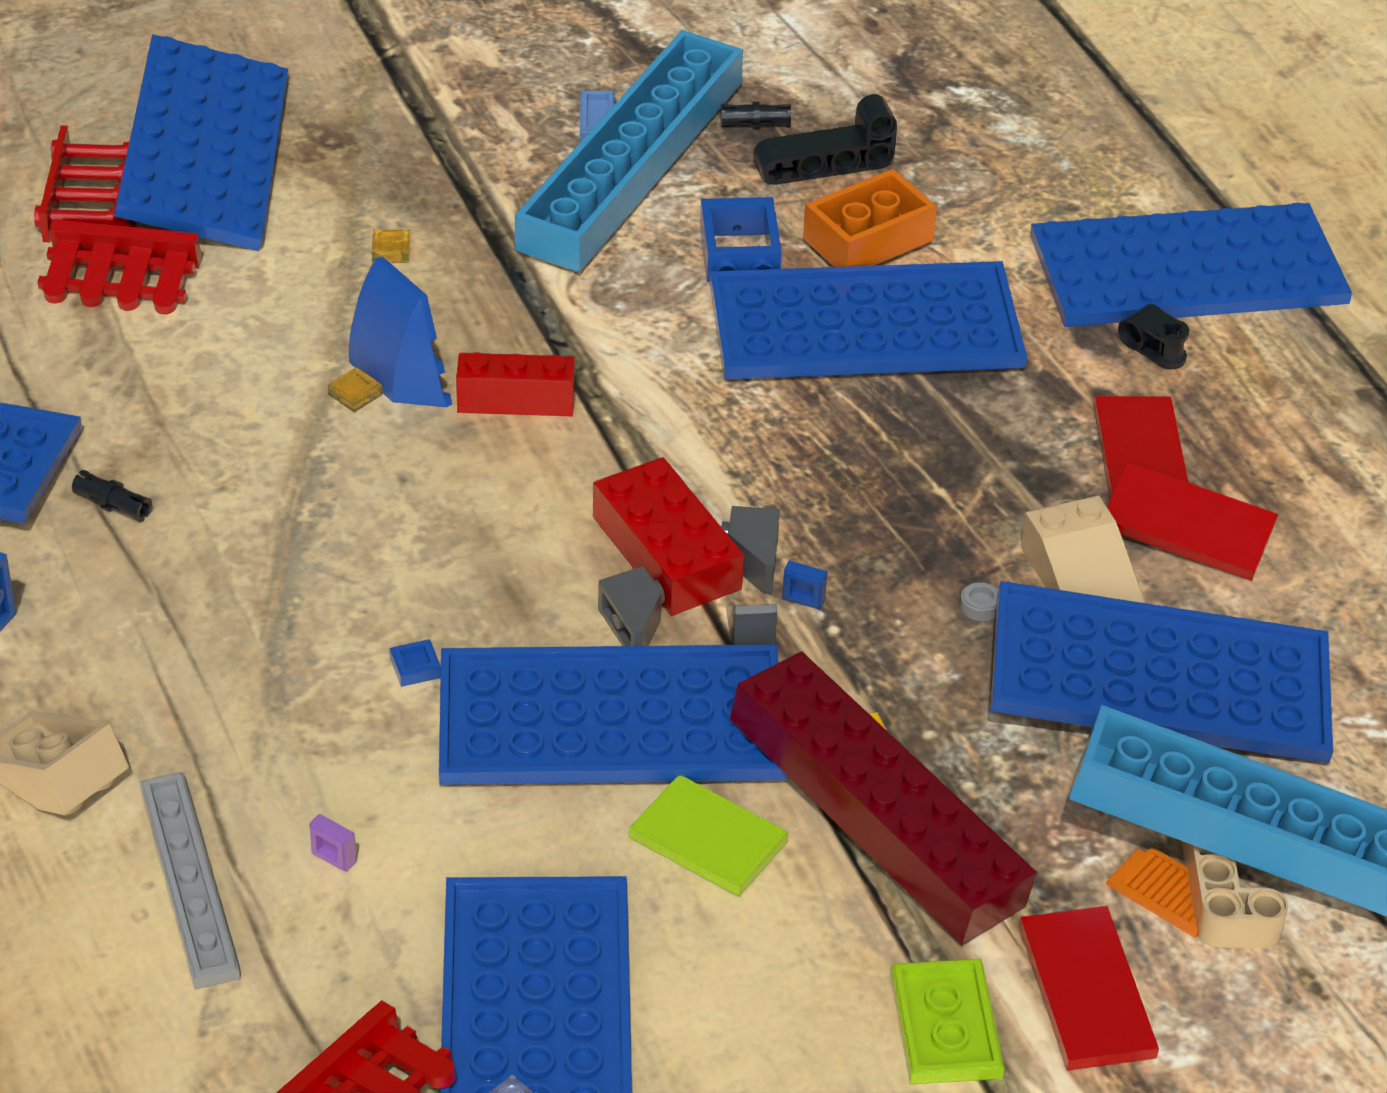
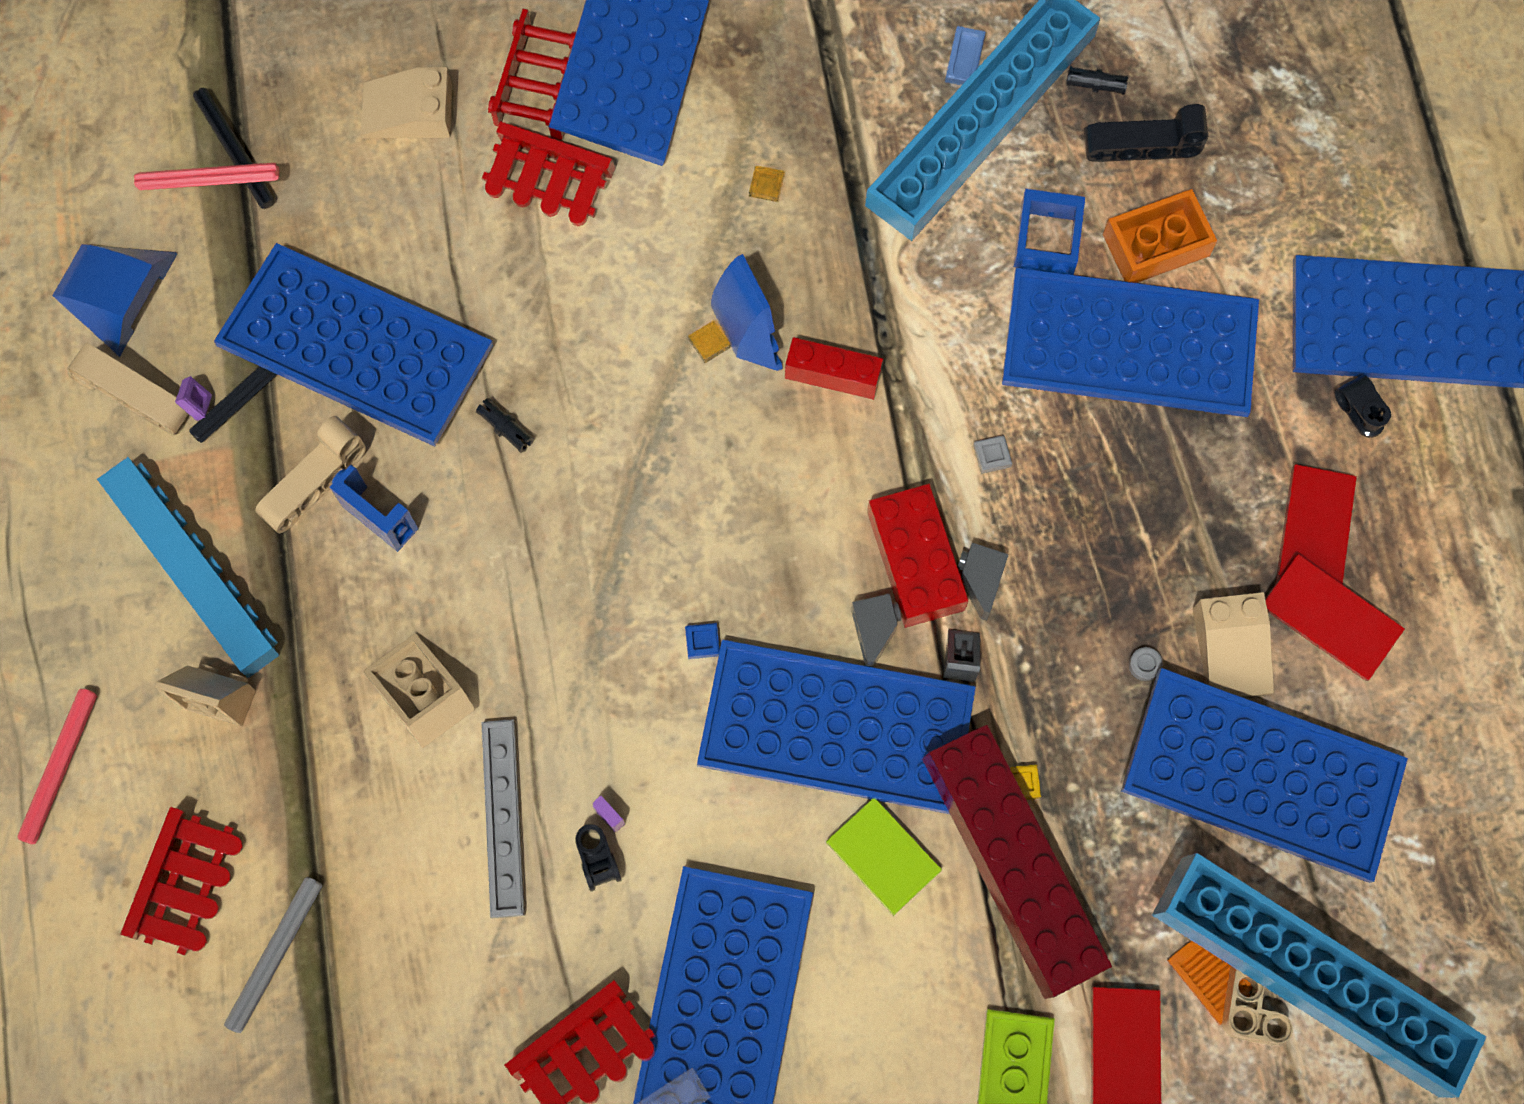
camera: 15 degrees right, 30 degrees up
(326, 887) = (597, 859): none -> black piece
(732, 441) = (992, 454): none -> light grey tile
(804, 585) = (1011, 627): blue tile -> none

